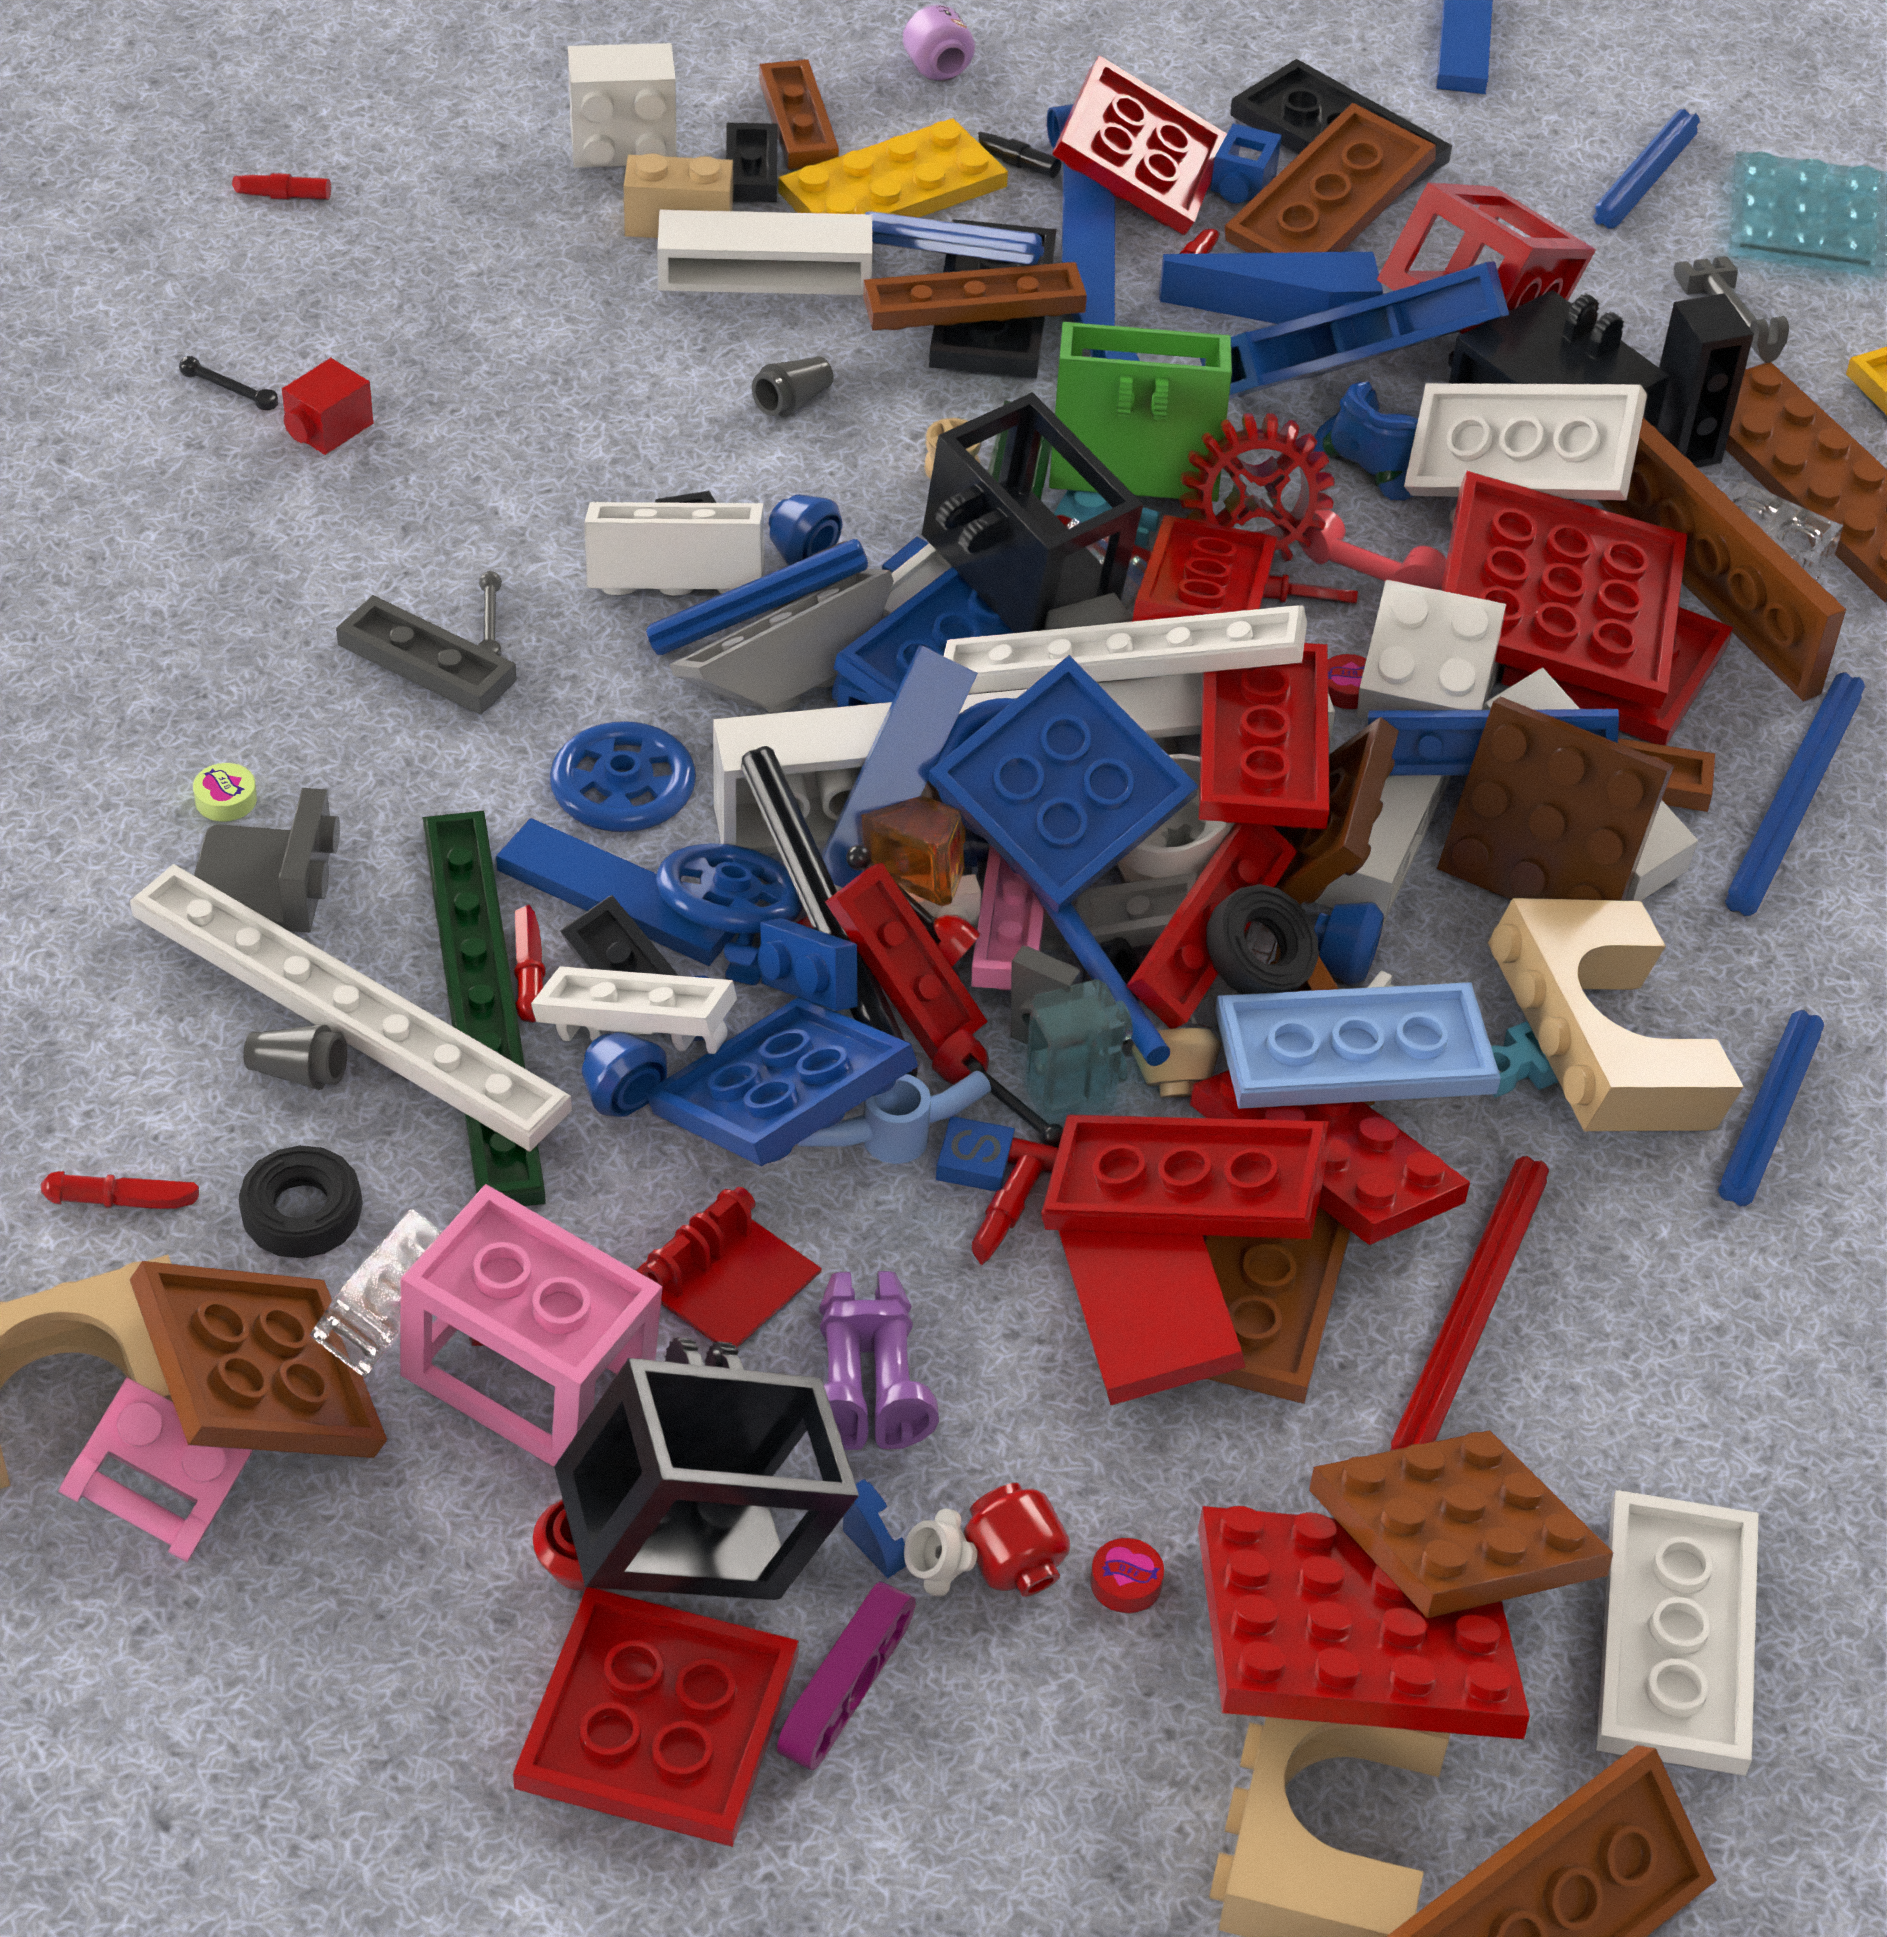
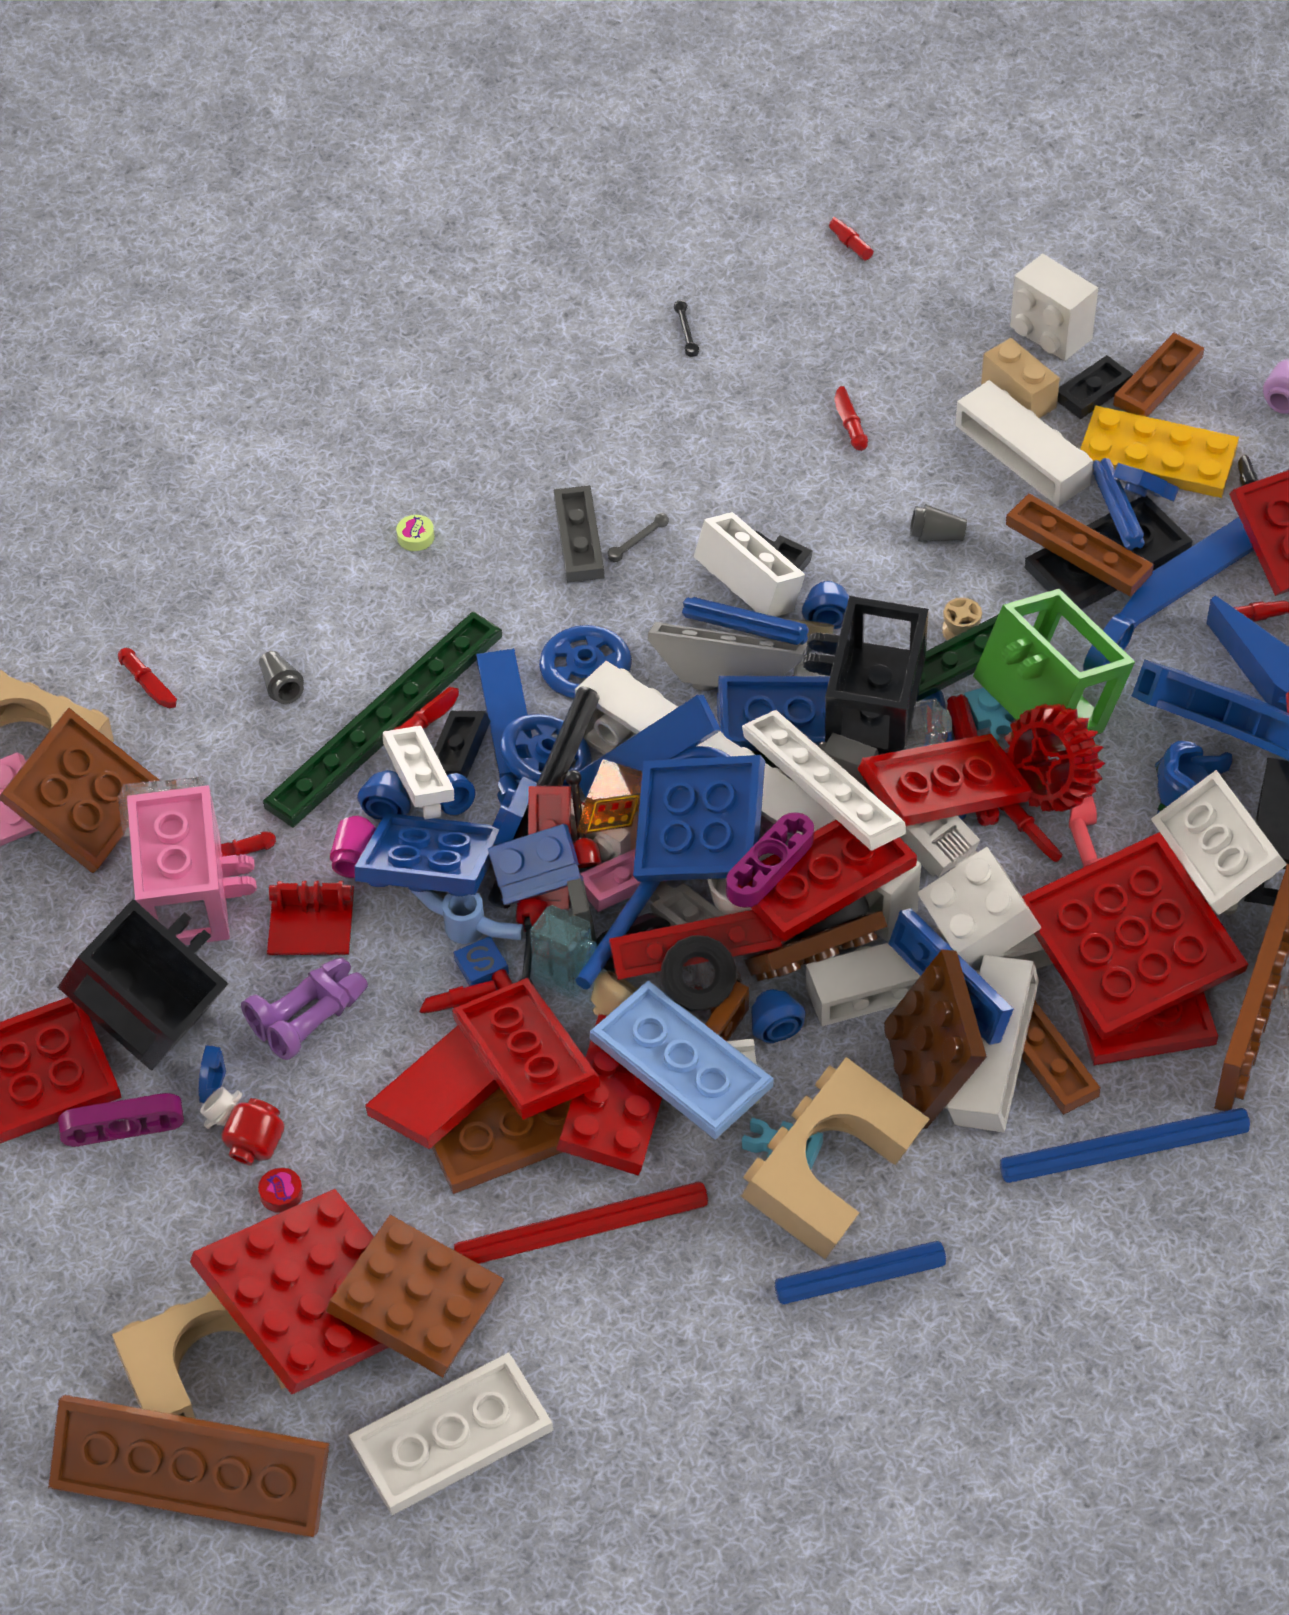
camera: 55 degrees right, 5 degrees up
(275, 869) = (377, 583): dark grey bracket -> none
(308, 1234) = (201, 761): black tyre -> none
(327, 406) = (701, 373): red brick -> none
(350, 1003) = (323, 674): white tile -> none
(544, 350) = (850, 419): none -> red piece
(663, 1154) = (349, 844): none -> dark pink brick
(924, 986) = (535, 864): none -> blue plate
(945, 201) = (1141, 482): none -> blue plate
(1213, 771) = (770, 843): none -> magenta beam

